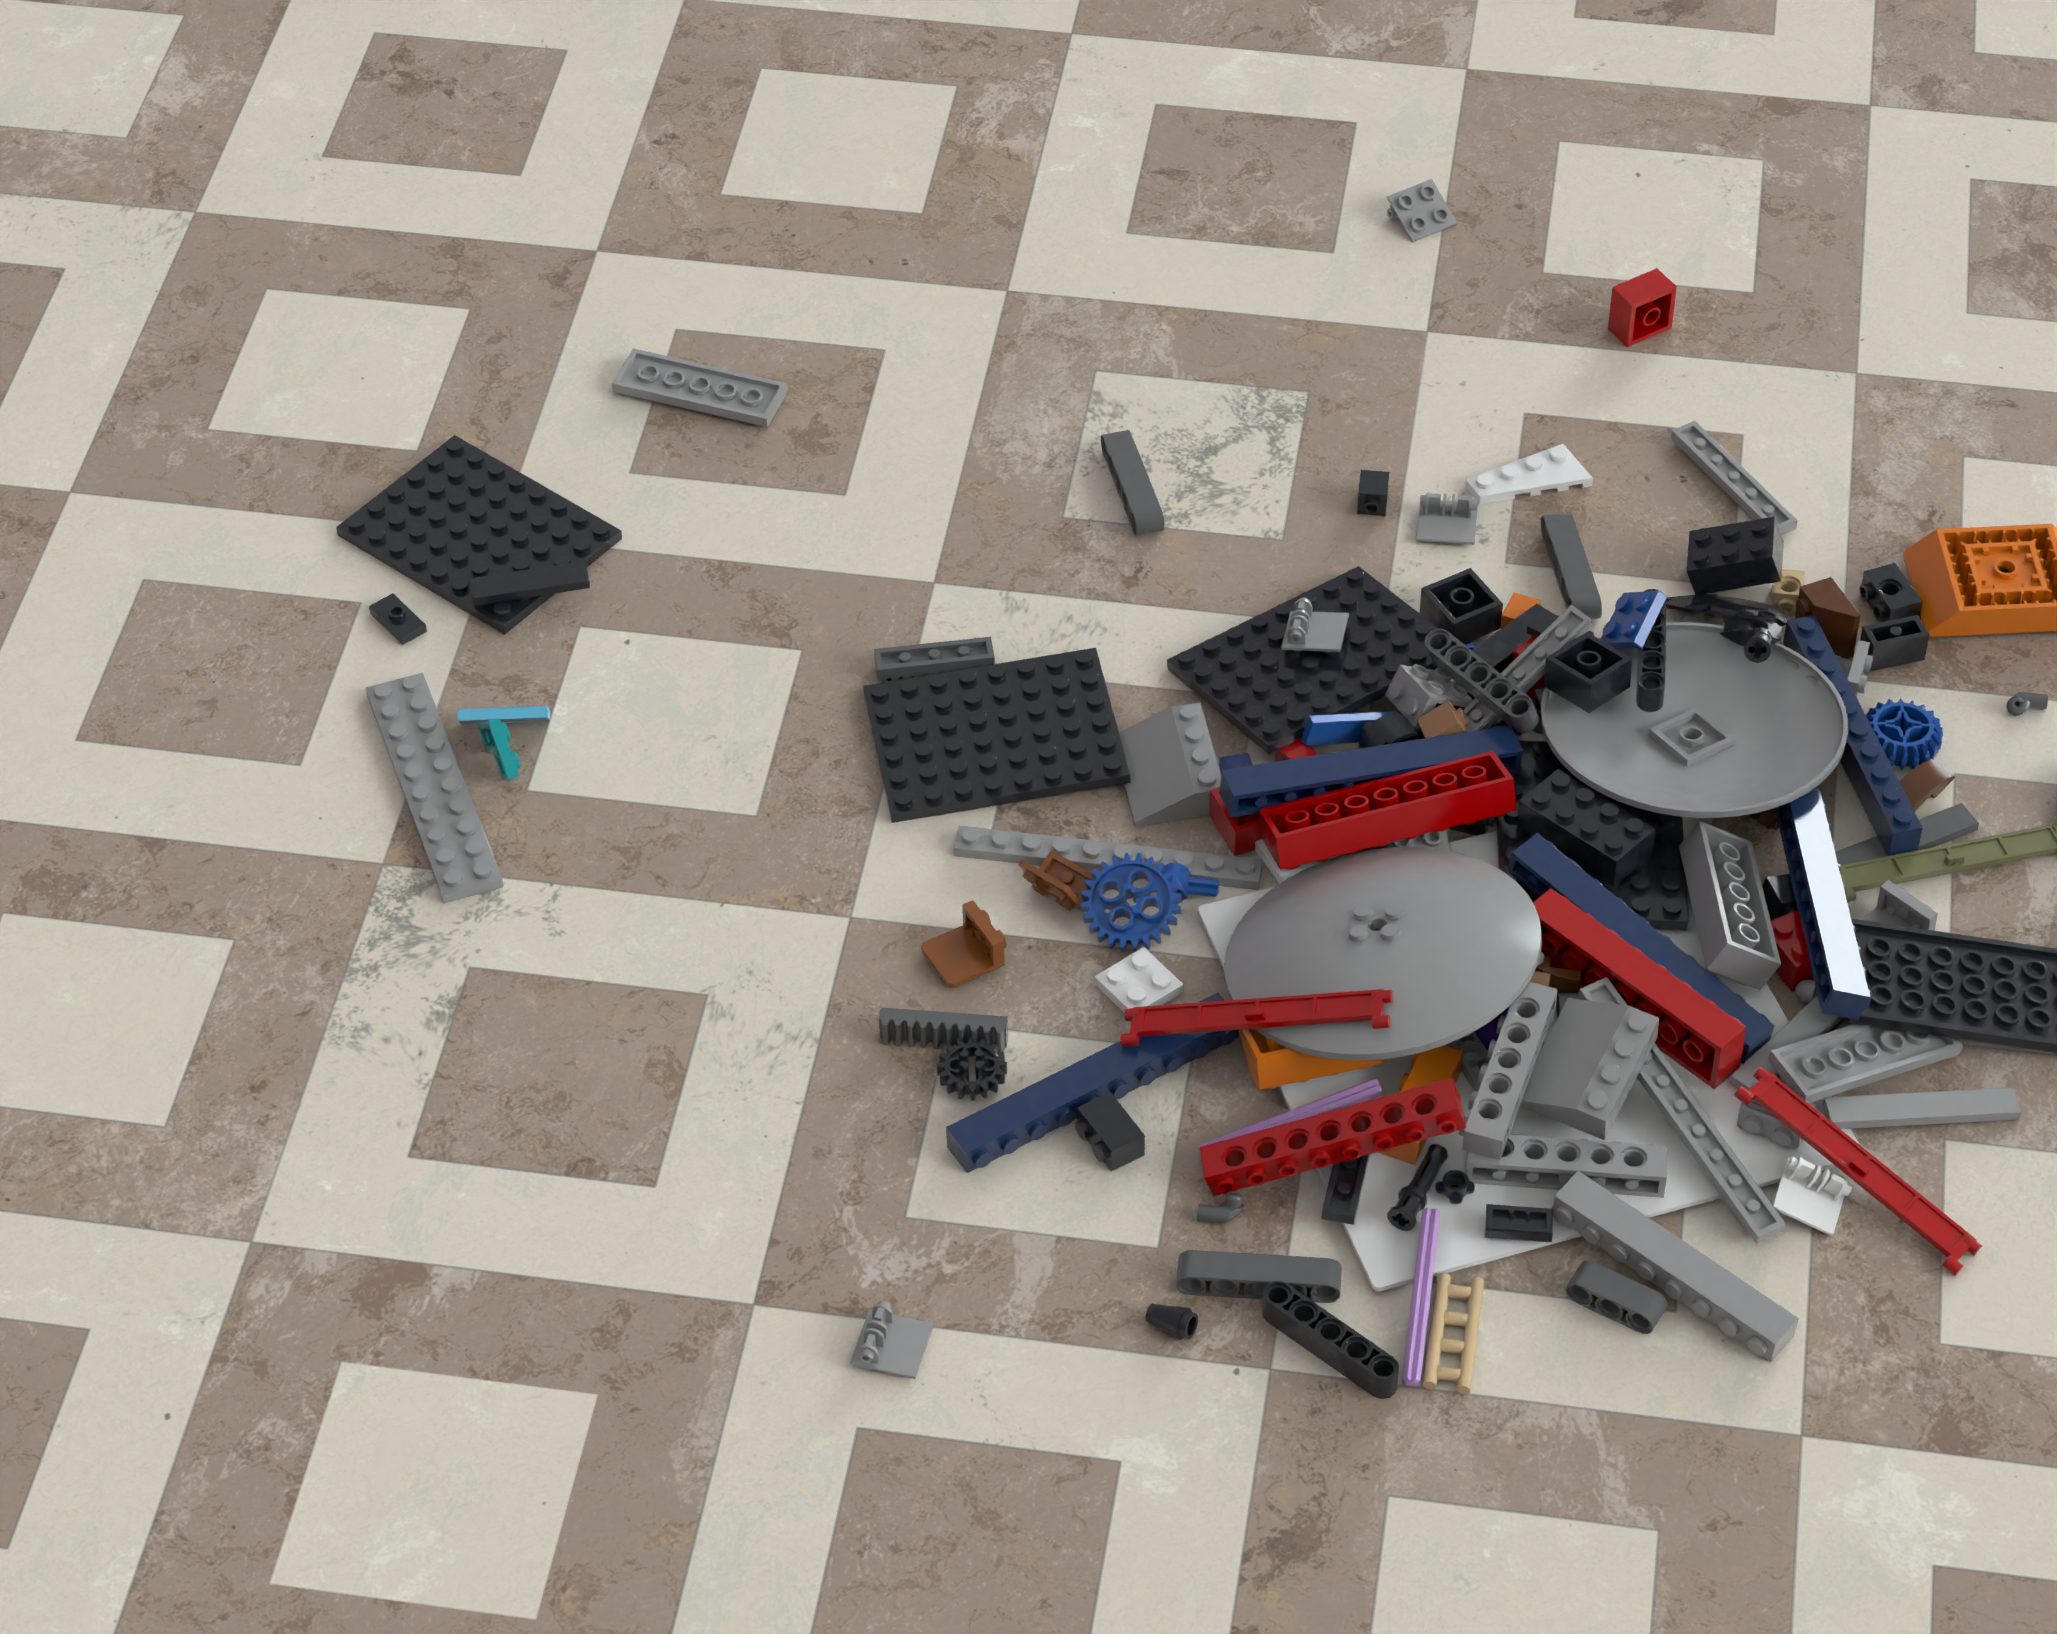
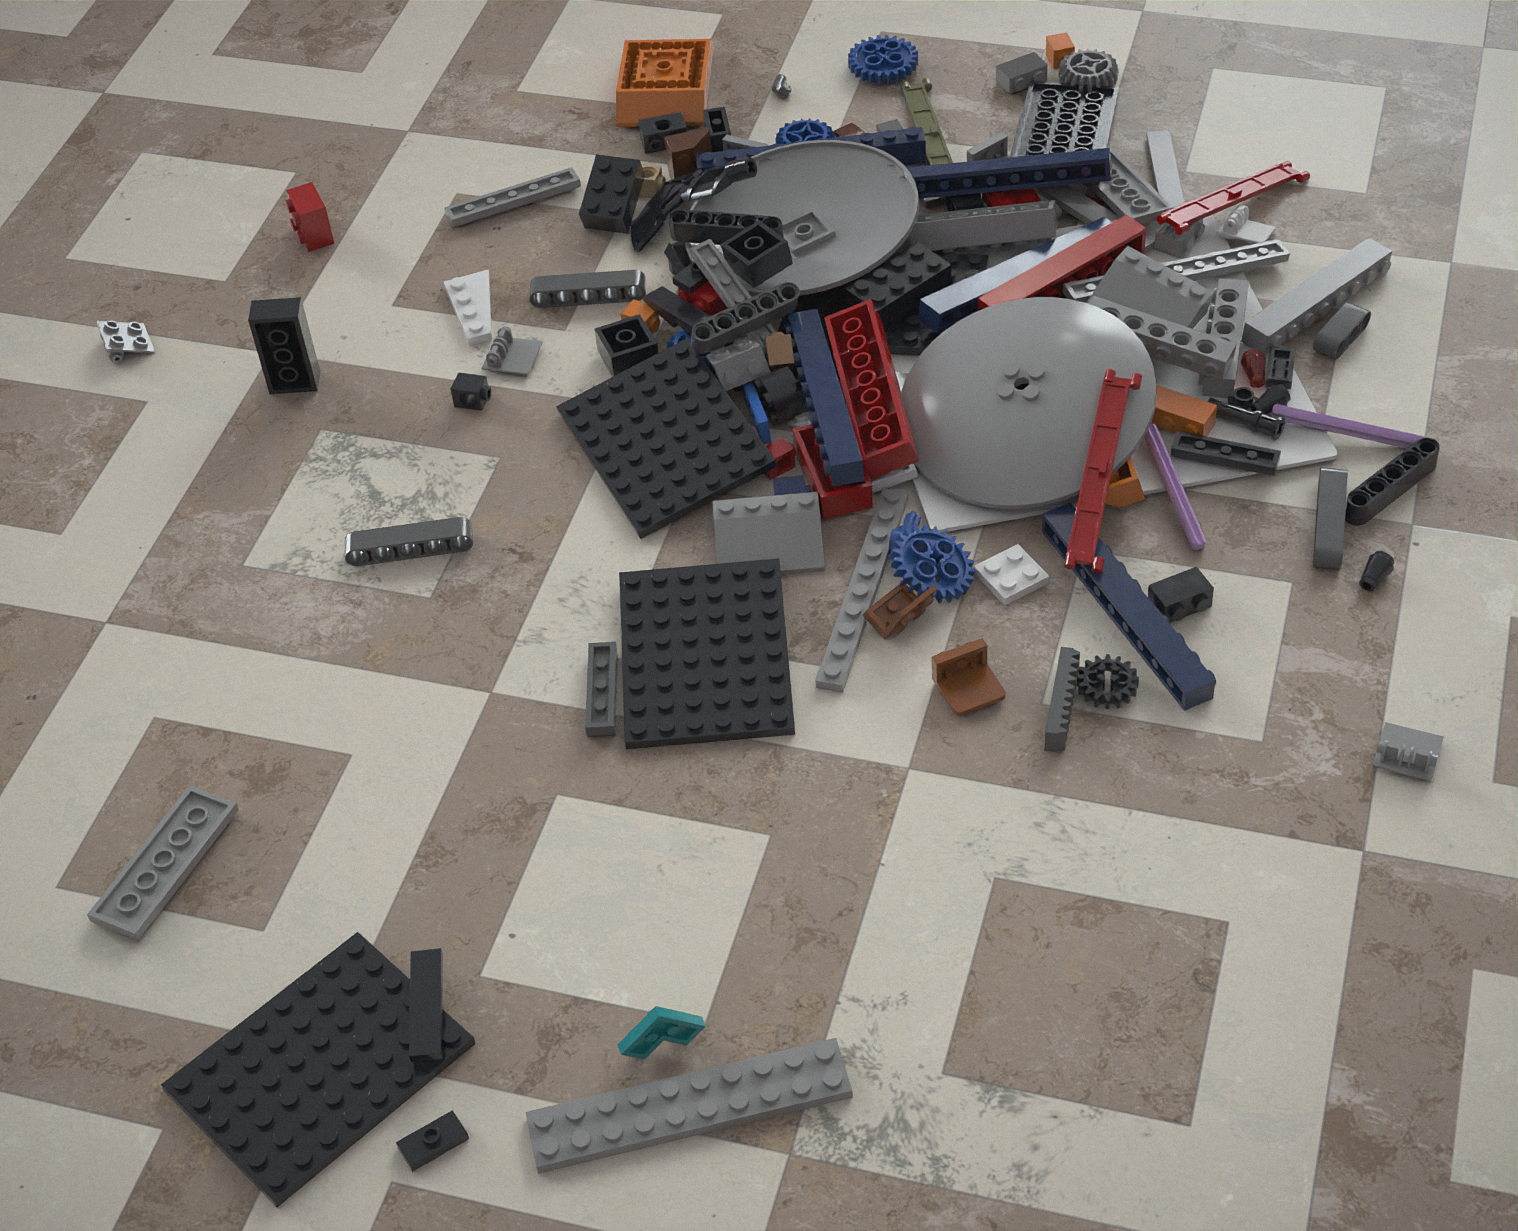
camera: 80 degrees left, 0 degrees up
(506, 714) = (607, 1034): medium azure tile -> none
(1224, 1212) = (1259, 536): dark grey arm -> none
(1314, 630) = (644, 423): light grey hinge -> none
(1332, 1137) = (1218, 531): red brick -> none
(1384, 316) = (284, 345): none -> black brick
(1453, 1212) = (1273, 395): none -> black cone
(1466, 1347) = (1389, 414): tan bar -> none
(1515, 1193) = (1254, 364): none -> clear red cone
(1633, 619) = (702, 222): blue plate -> none

